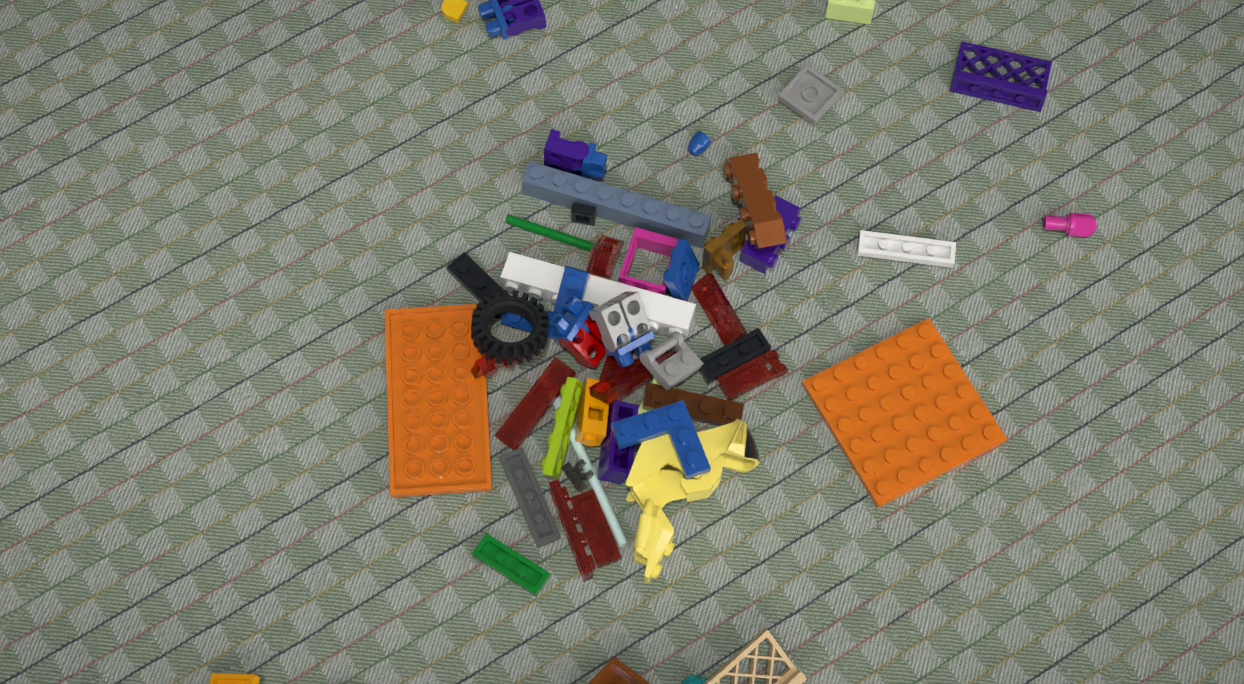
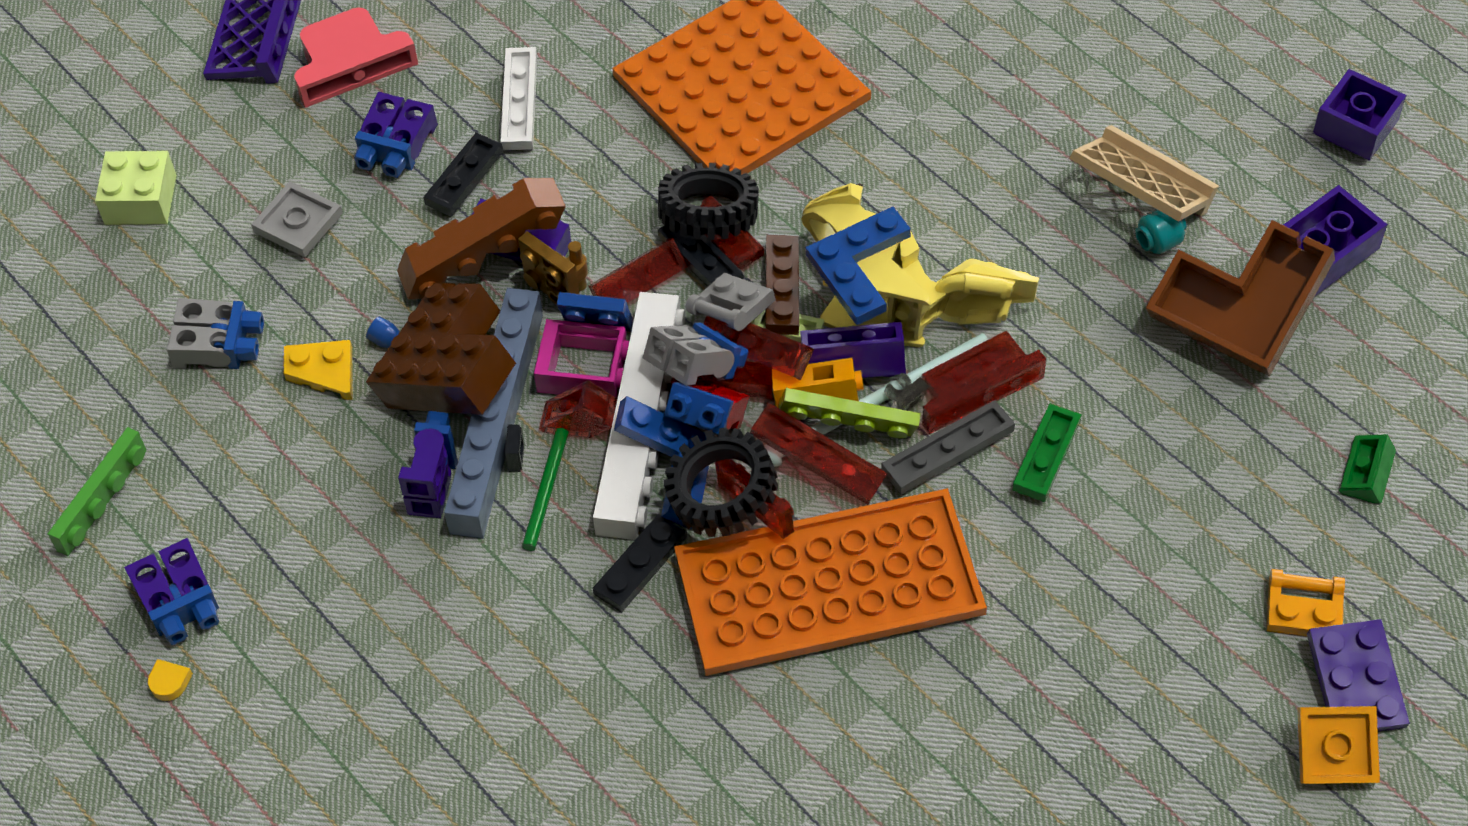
camera: 95 degrees left, 10 degrees down
(661, 162) = (443, 354): none -> reddish brown piece
(678, 105) = (321, 366): none -> yellow wing
(712, 46) = (213, 333): none -> light grey hips
(792, 344) = (708, 220): none -> black tyre
(836, 204) = (463, 174): none -> black plate
(879, 160) = (393, 135): none -> hips
(965, 134) = (349, 54): none -> coral brick

